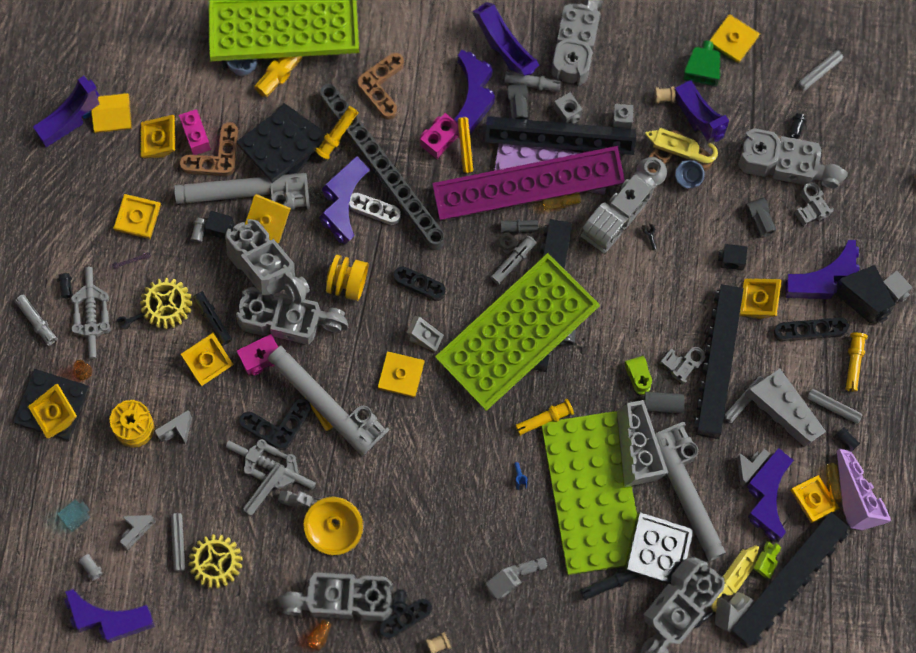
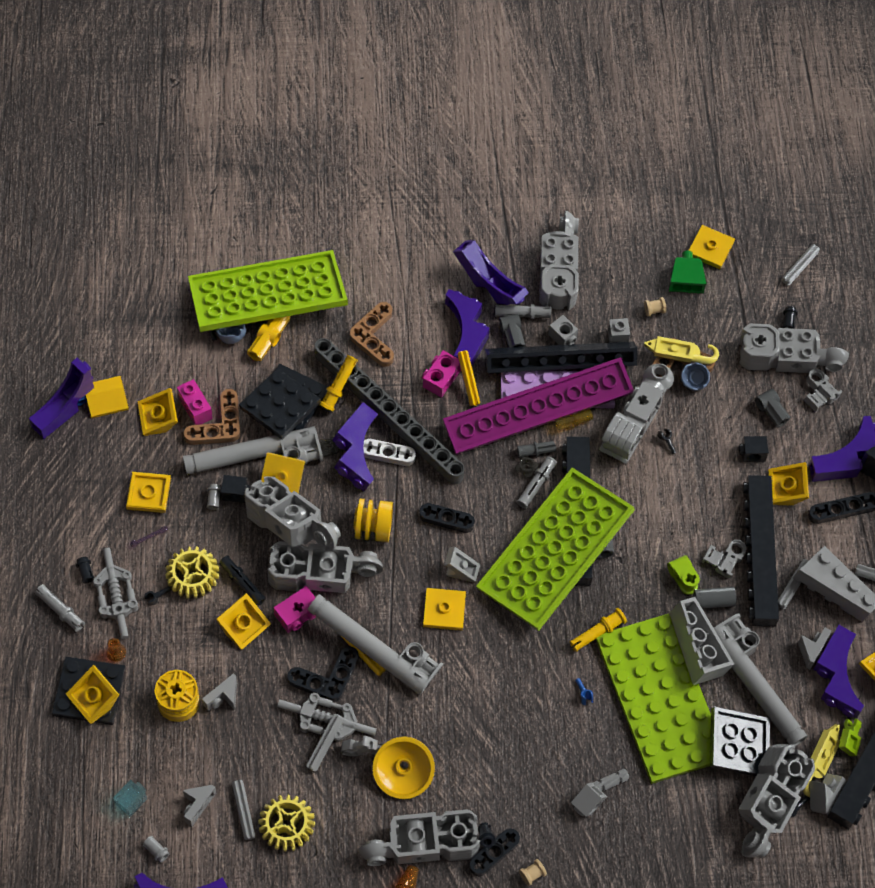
camera: 10 degrees left, 10 degrees down
(617, 579) = (702, 780): black pin -> none
(699, 113) = (693, 318): dark purple arch -> none

